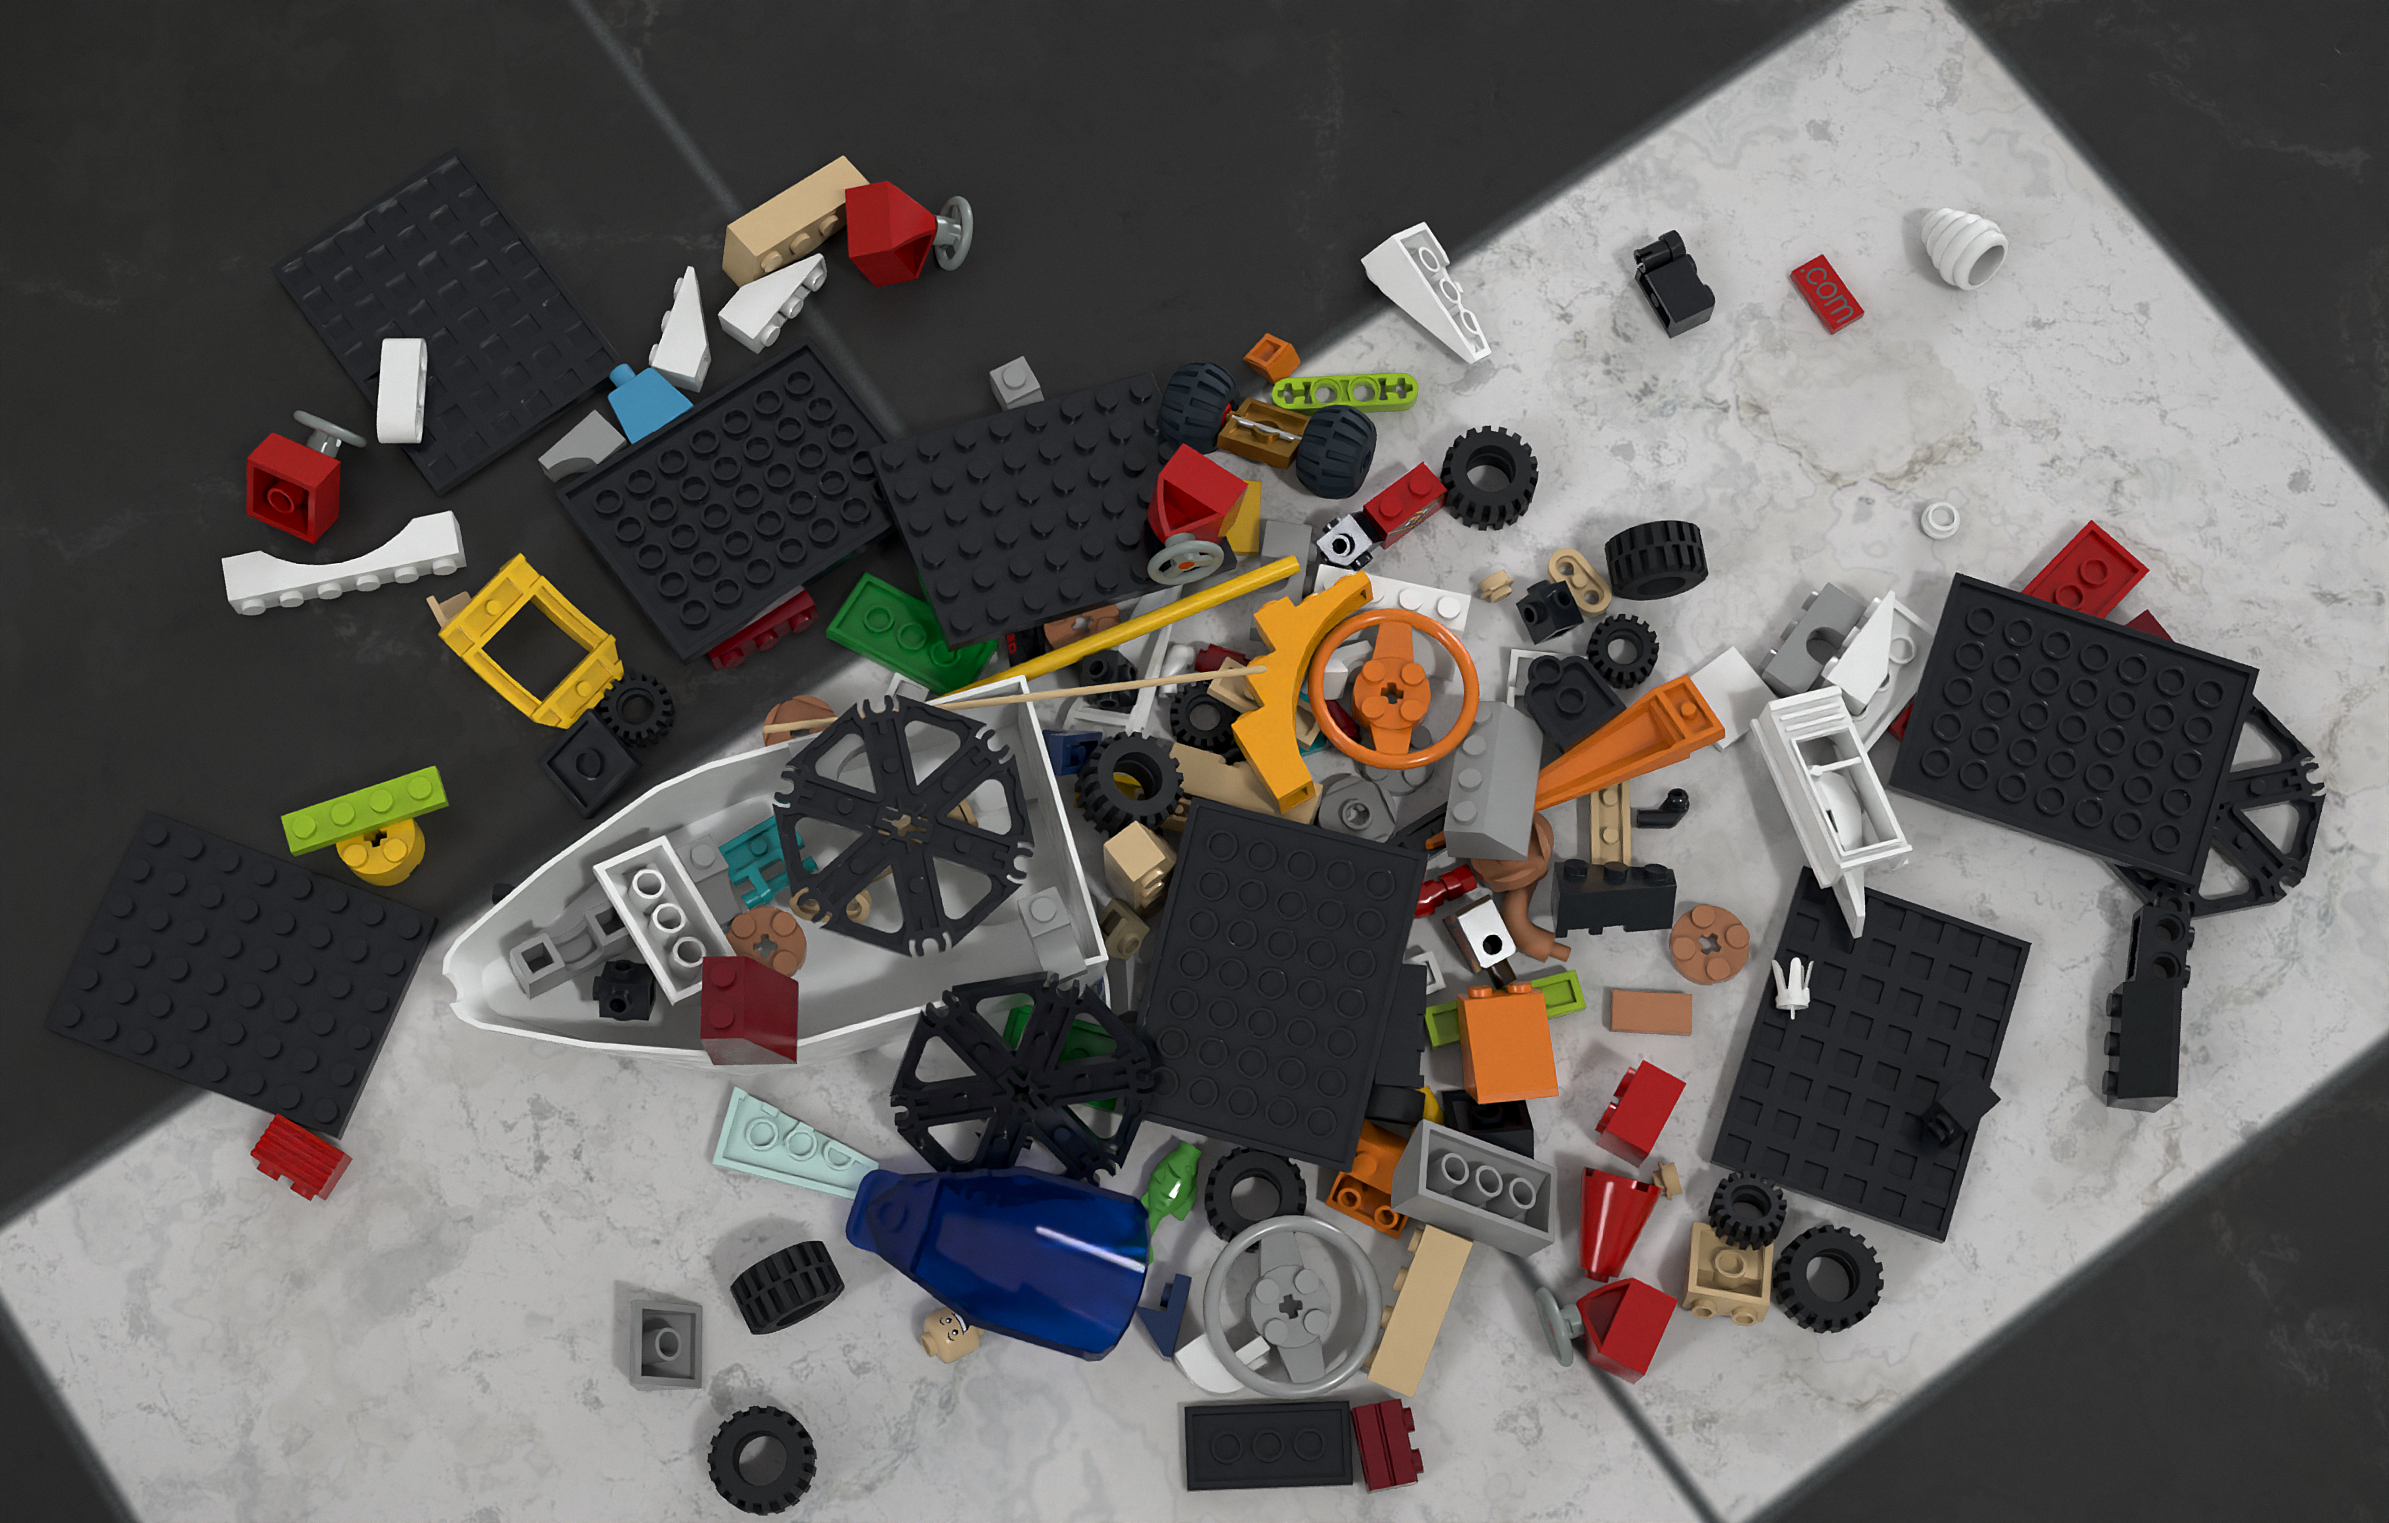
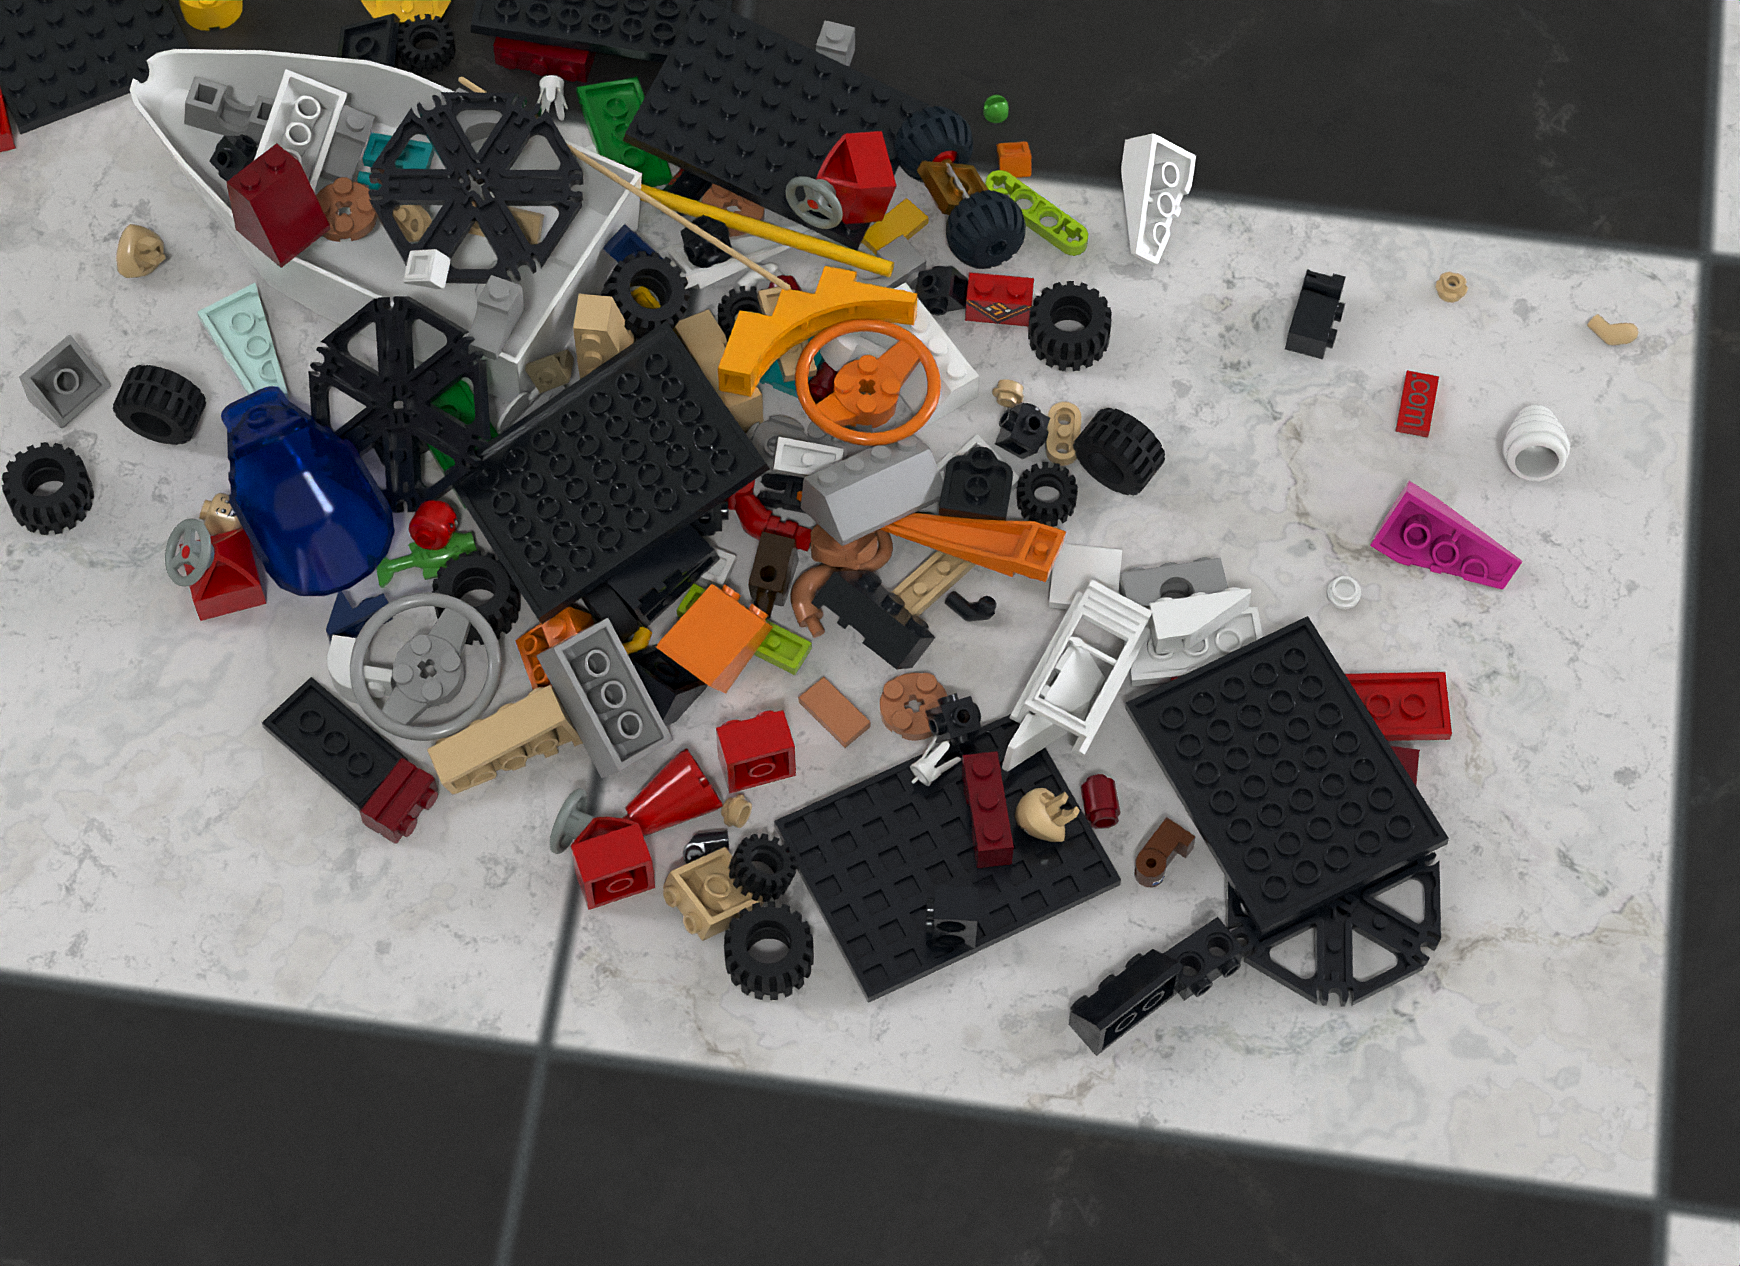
camera: 45 degrees right, 10 degrees down
(596, 1156) = (139, 251): none -> tan piece
(802, 652) = (552, 90): none -> white piece
(940, 945) = (427, 269): none -> white slope
(1004, 1392) = (217, 569): none -> red piece
(1154, 1168) = (433, 525): none -> red head
(1214, 327) = (996, 109): none -> bright green hinge
(1405, 806) = (802, 457): none -> white plate
(1668, 1236) = (703, 843): none -> black arm
(1748, 169) = (1449, 293): none -> tan plate
(1769, 930) = (954, 719): none -> black brick
(1902, 999) = (988, 809): none -> dark red arch
(1915, 91) = (1613, 333): none -> tan arm
(1930, 948) = (1041, 815): none -> tan piece
(1945, 889) = (1100, 801): none -> dark red brick
(1960, 403) = (1436, 537): none -> dark pink wedge
(2033, 889) = (1160, 851): none -> reddish brown leg

